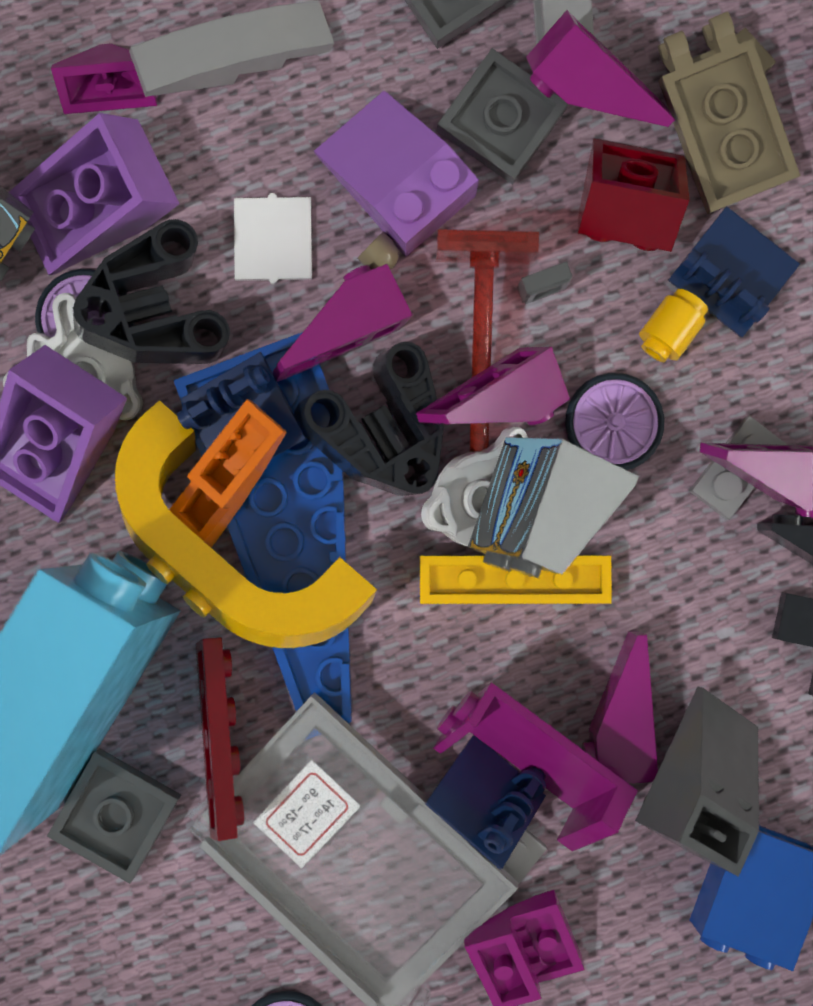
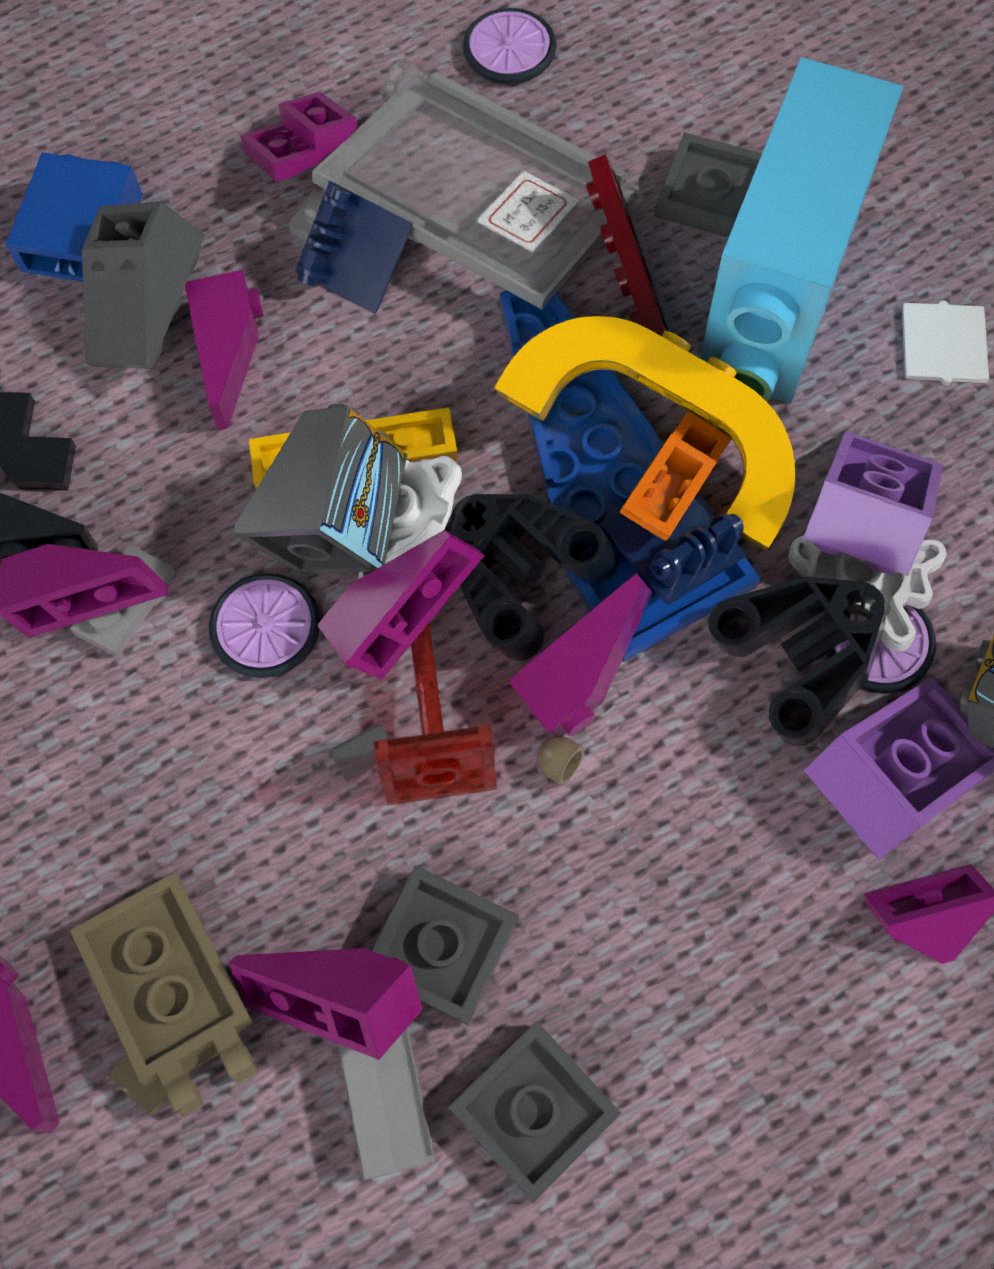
camera: 170 degrees right, 20 degrees down
(230, 46) = (786, 965): light grey slope -> none
(273, 238) = (687, 761): white piece -> none
(398, 171) = (558, 855): medium lavender slope -> none
(592, 790) = (248, 247): magenta panel -> none
(633, 196) = (269, 876): dark red slope -> none
(673, 325) = (208, 730): yellow brick -> none
(735, 272) = (141, 810): dark blue hinge -> none

